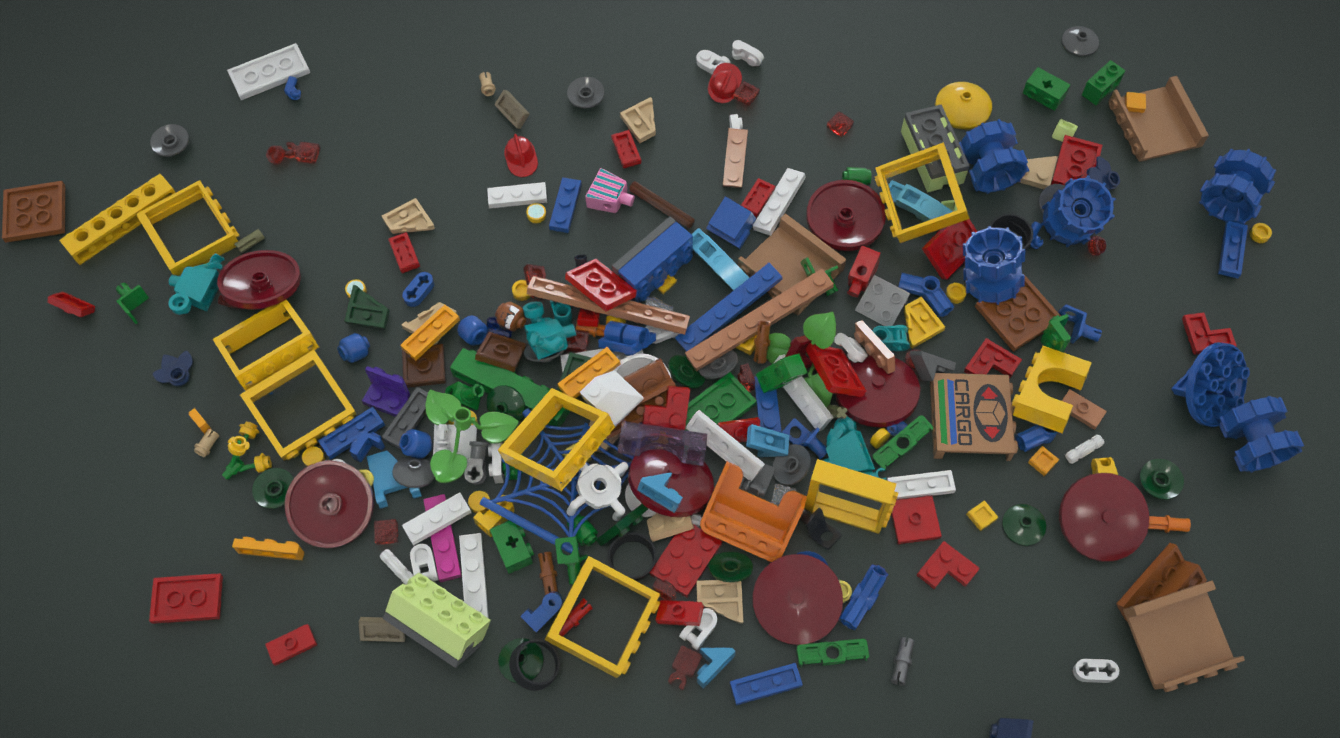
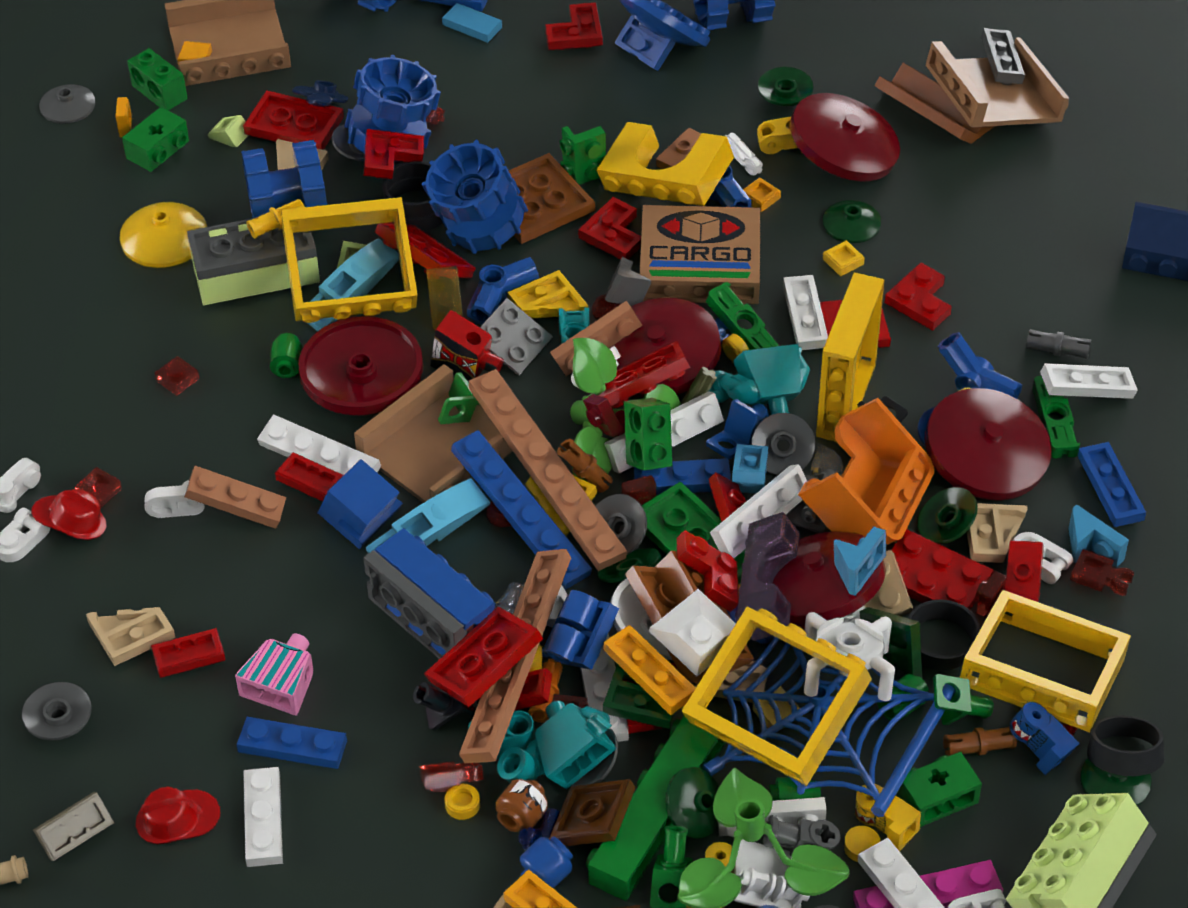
camera: 90 degrees left, 15 degrees down
(473, 572) = (969, 846): white plate -> none
(536, 213) = (304, 786): tile -> none
(662, 204) = (309, 602): reddish brown axle -> none
(860, 676) = (1088, 381): none -> white plate
(908, 258) = (443, 293): none -> clear yellow slope
(952, 147) = (270, 220): none -> yellow axle
(956, 293) = (497, 257): yellow tile -> none
(1038, 209) = (387, 146): none -> red plate
(1065, 69) = (123, 116): none -> light orange tile
(1080, 327) = (552, 135): blue bracket -> none
(1096, 665) = (1040, 170): white beam -> none
(1169, 524) = (844, 82): orange axle -> none
(1203, 268) = (472, 22): none -> dark azure tile
(1221, 645) = (1003, 56): none -> dark grey plate

